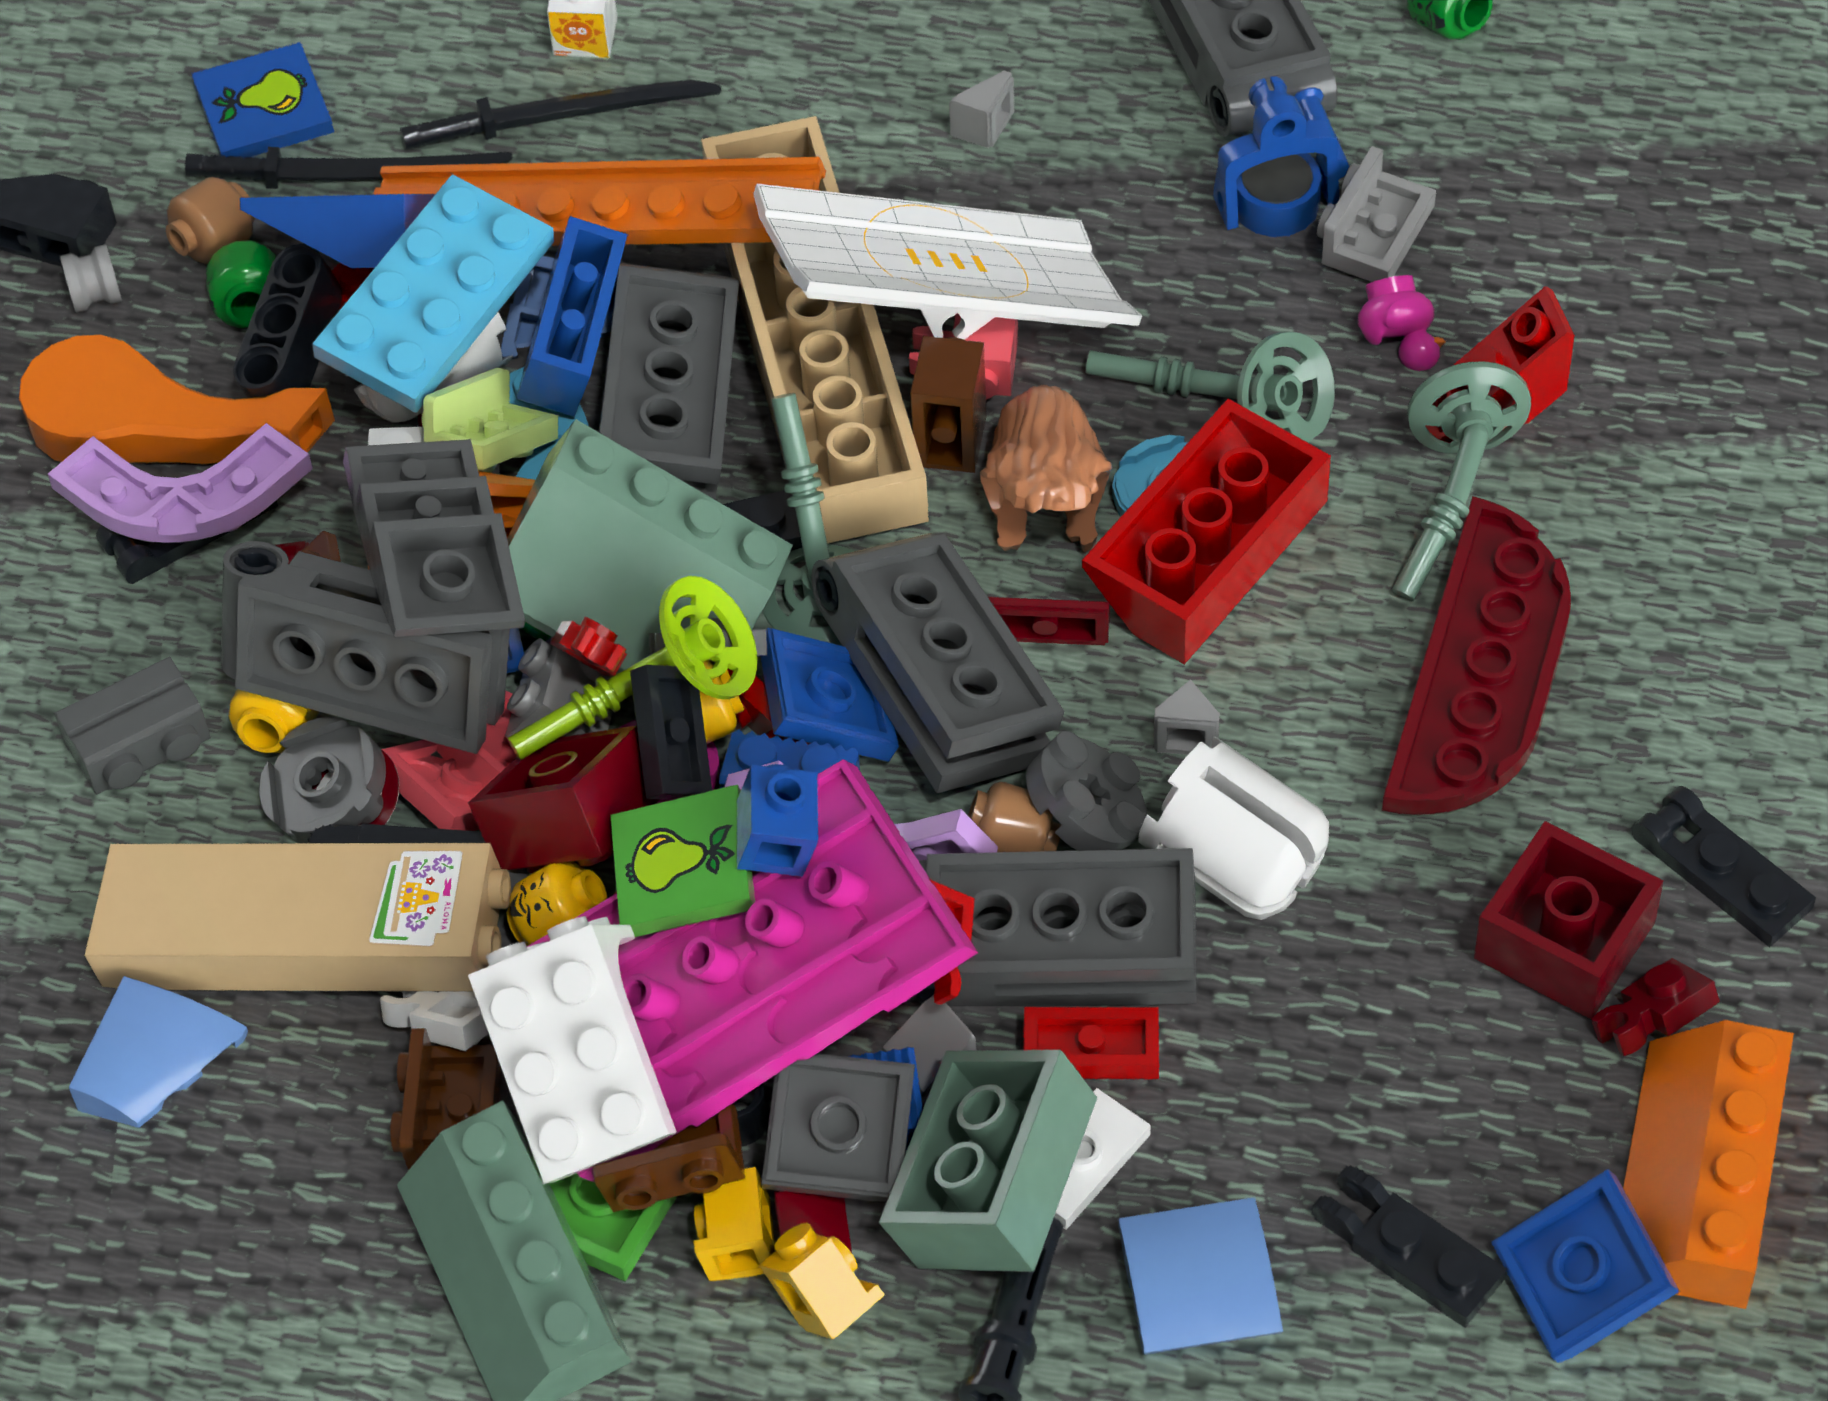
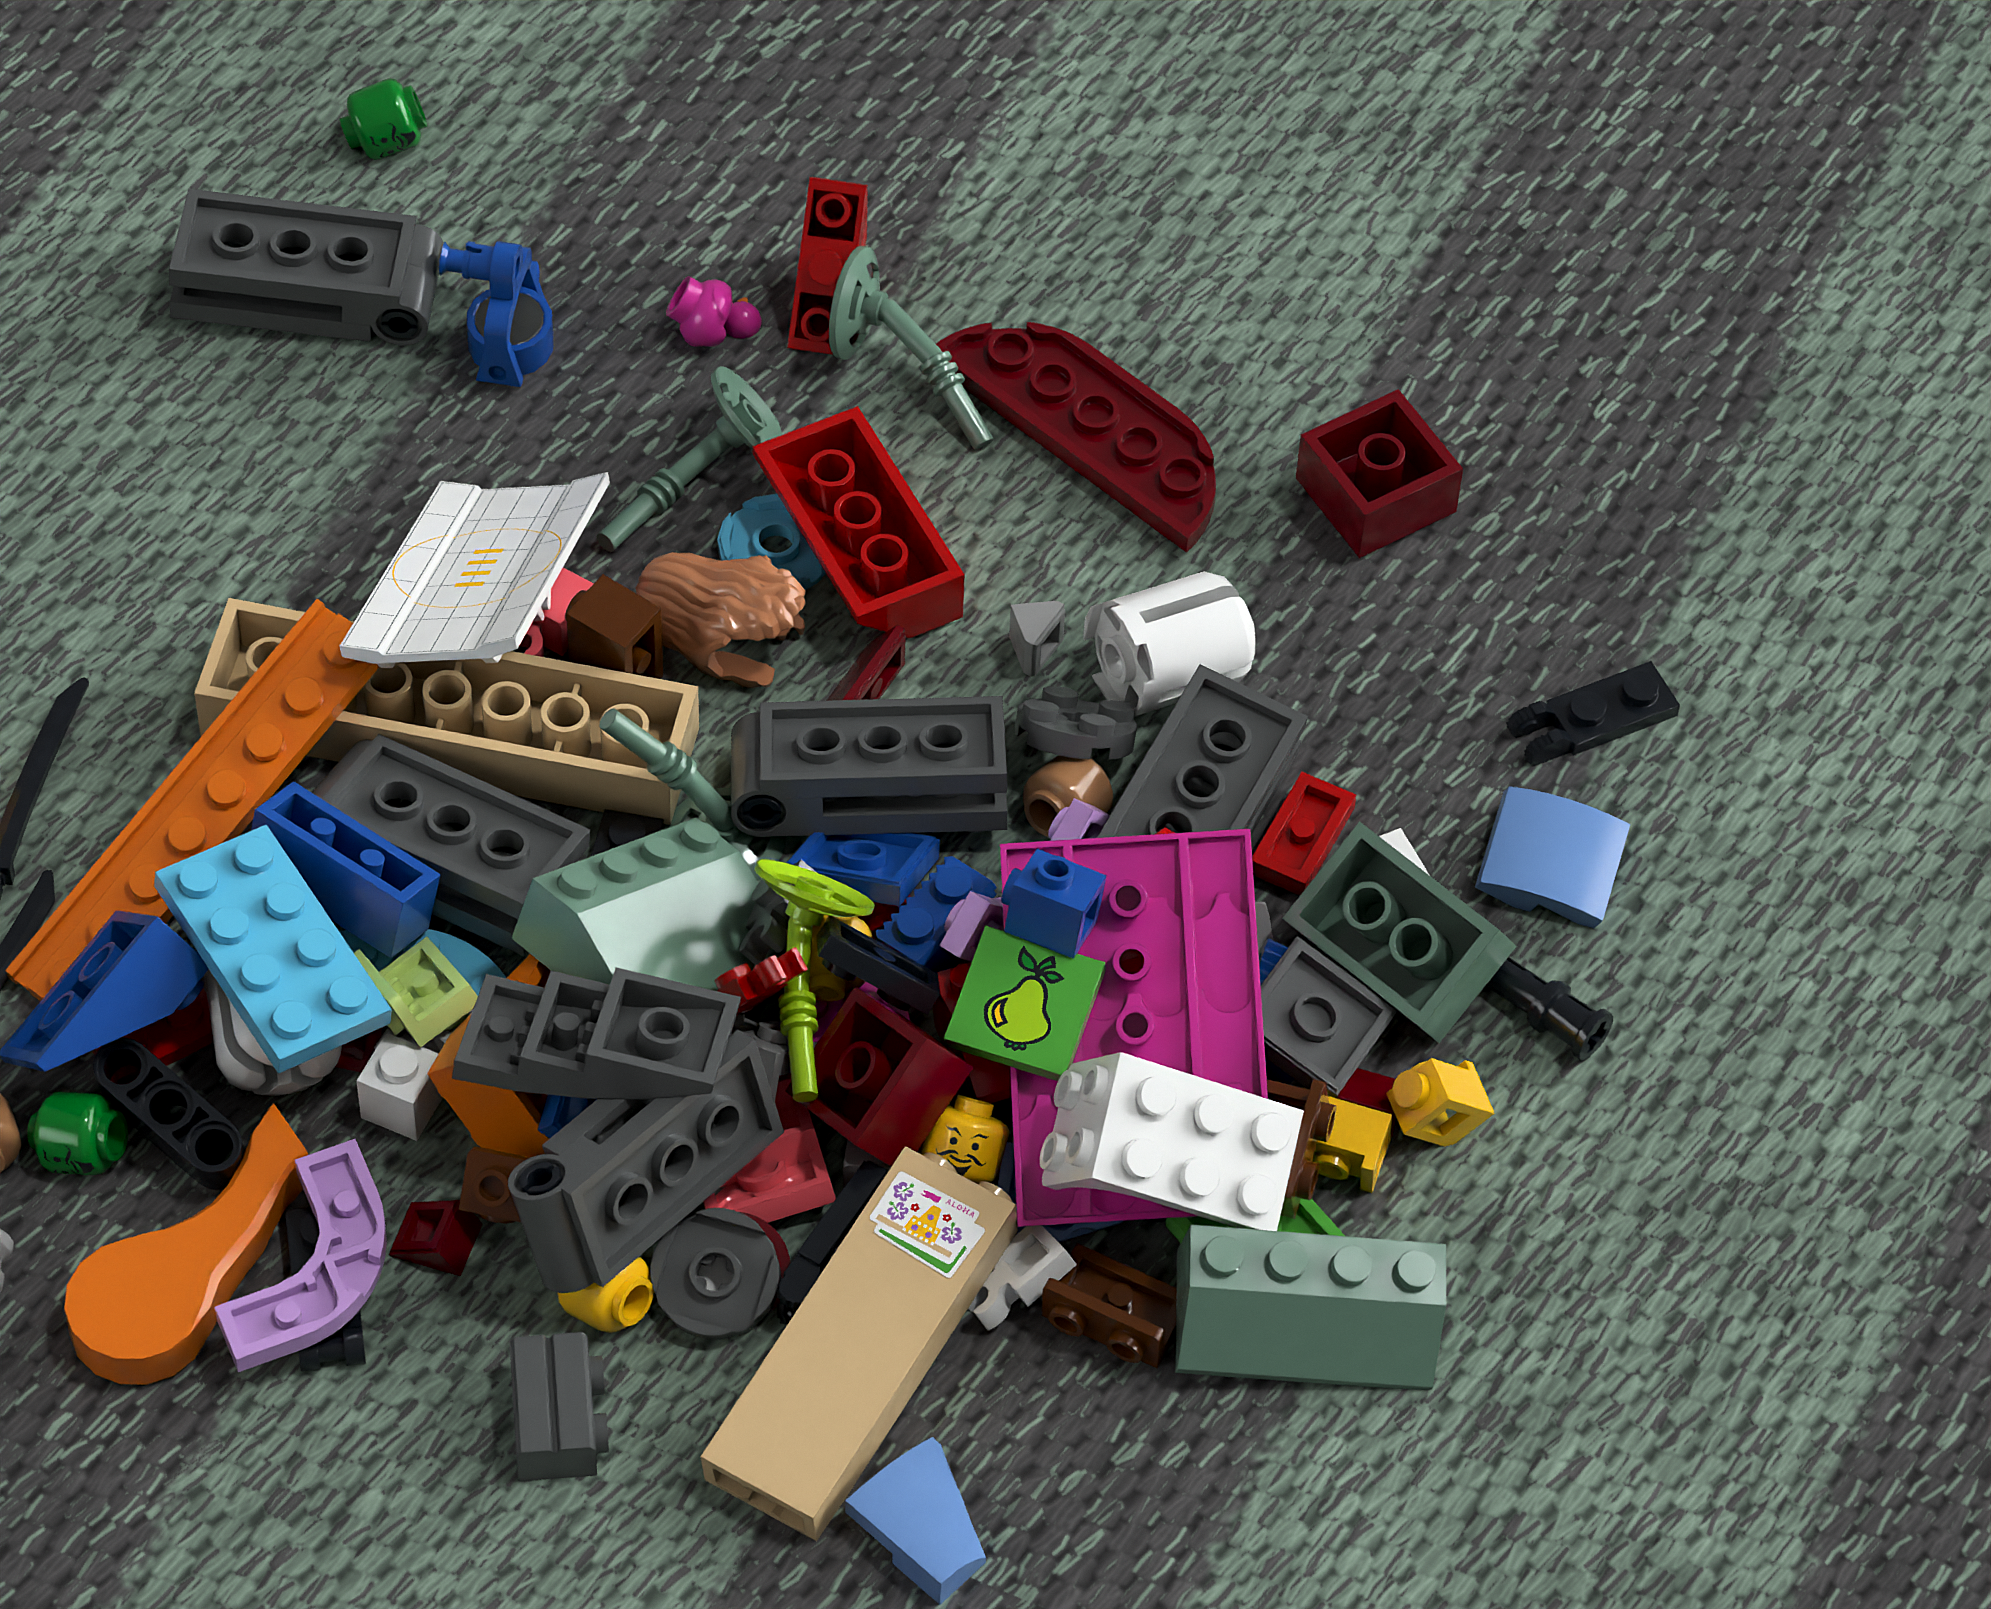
camera: 70 degrees left, 0 degrees up
(983, 110) = (279, 490): light grey slope -> none
(1373, 220) = (595, 281): light grey bracket -> none
(1585, 1266) = (1682, 608): blue tile -> none
(1660, 1001) = (1480, 454): dark red plate -> none
(1708, 1153) = (1628, 496): orange slope -> none
(1724, 867) = (1367, 366): black plate -> none

